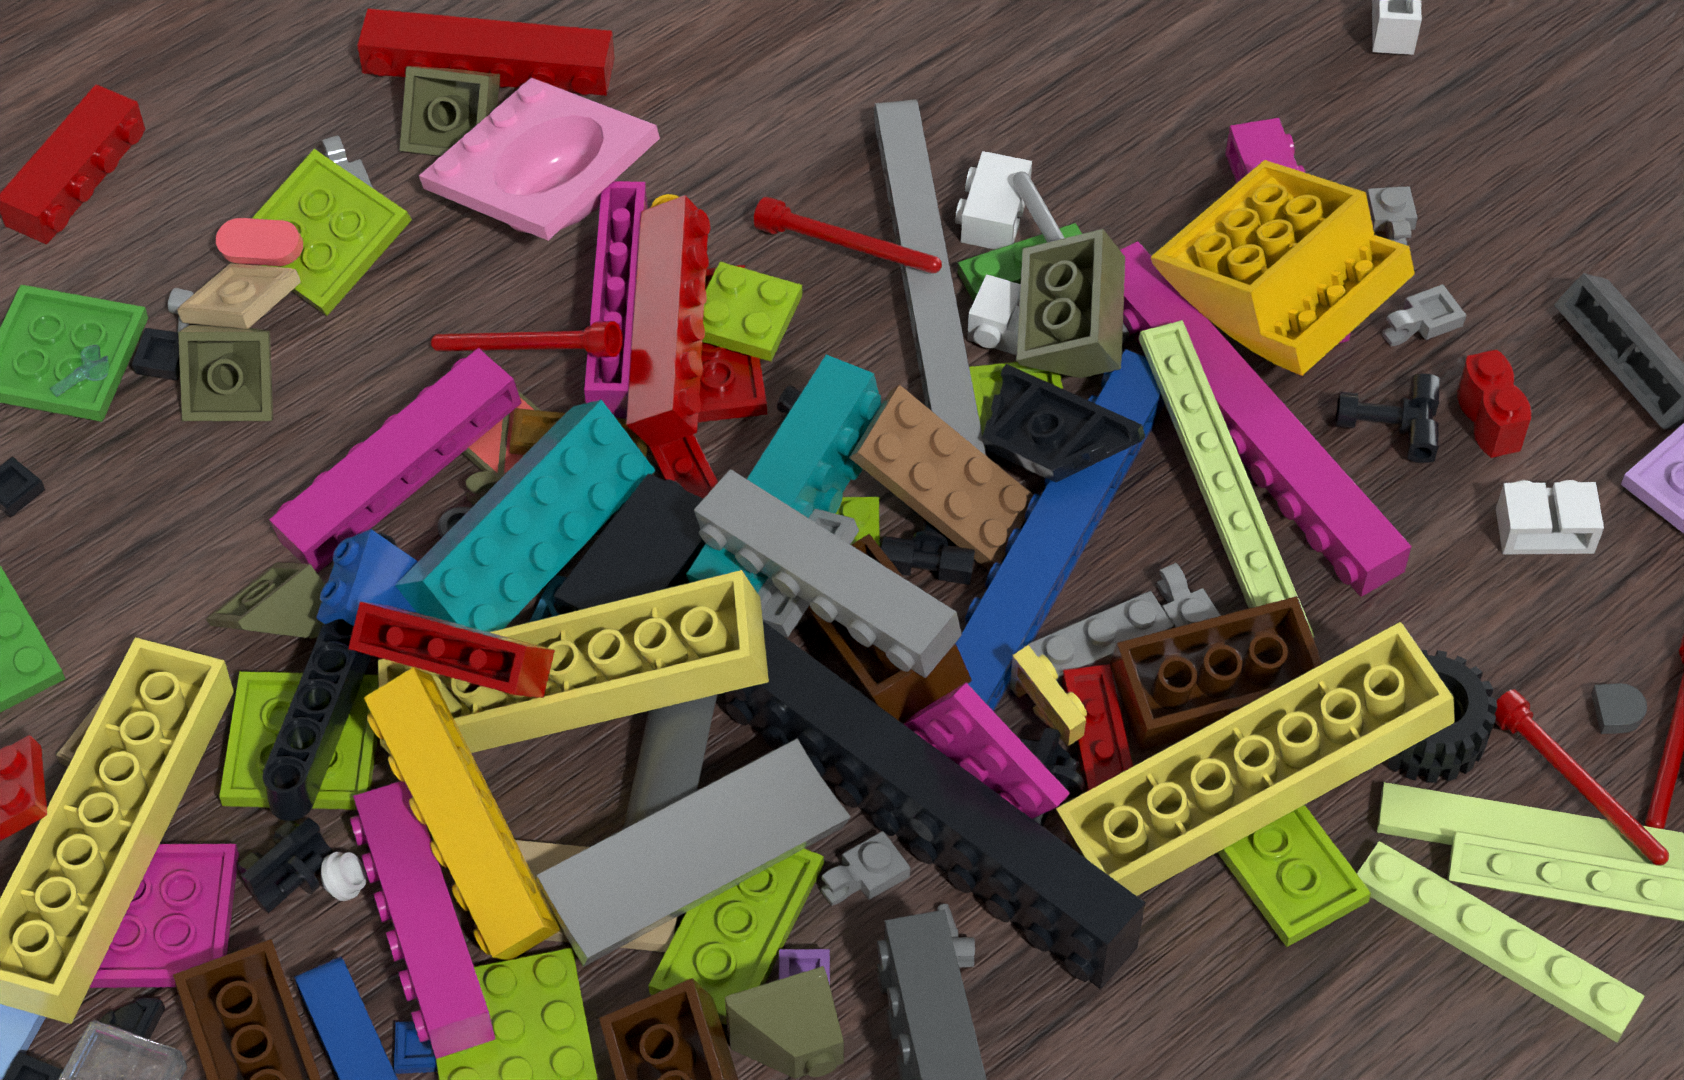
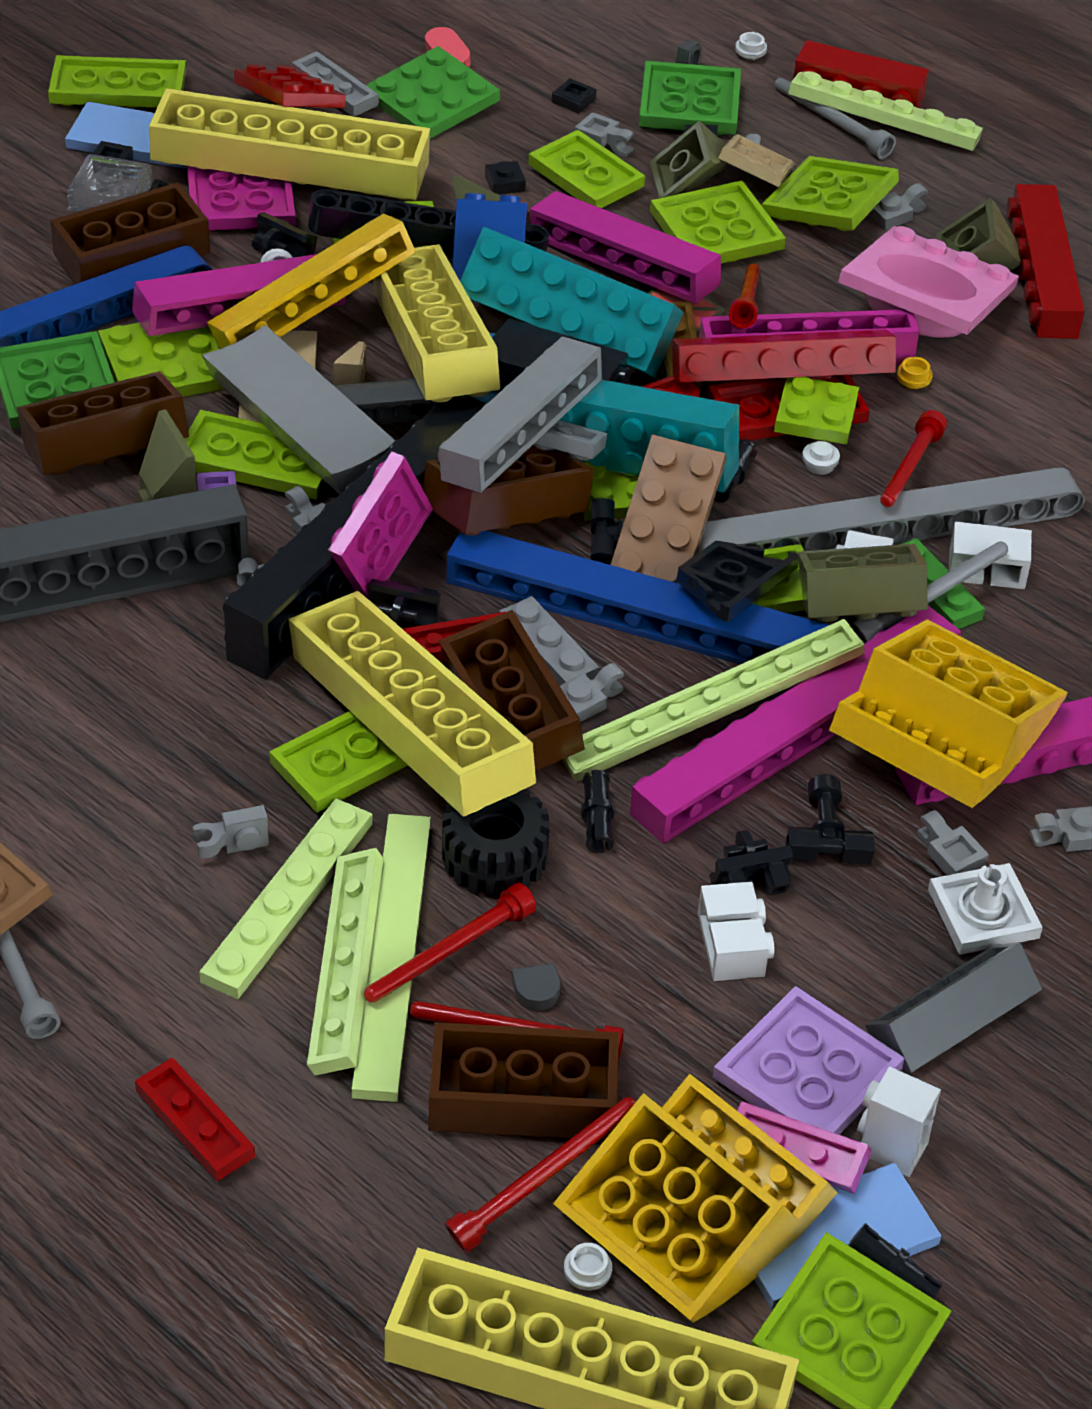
camera: 80 degrees right, 10 degrees down
(91, 368) = (674, 99): clear light blue hand -> none
(117, 463) = (606, 131): none -> light grey plate
(147, 153) = (895, 113): none -> yellowish green plate
(184, 588) = (505, 177): none -> black plate
(198, 489) = (586, 169): none -> lime plate
(208, 171) = (878, 141): none -> light grey piece
(259, 242) = (808, 162): coral tile -> none
(347, 362) = (720, 220): none -> lime plate
(452, 649) = (425, 245): red brick -> none
(583, 797) = (350, 366): none -> tan slope
(806, 329) = (820, 457): none -> white plate
(1053, 706) = (468, 587): light yellow wing -> none
(1371, 618) = (597, 811): none -> black pin
(1412, 978) = (238, 831): none -> light grey plate
(1457, 488) = (754, 860): none -> black hips
(1494, 403) = (854, 889): red brick -> none
(1507, 304) = (984, 908): none -> white plate

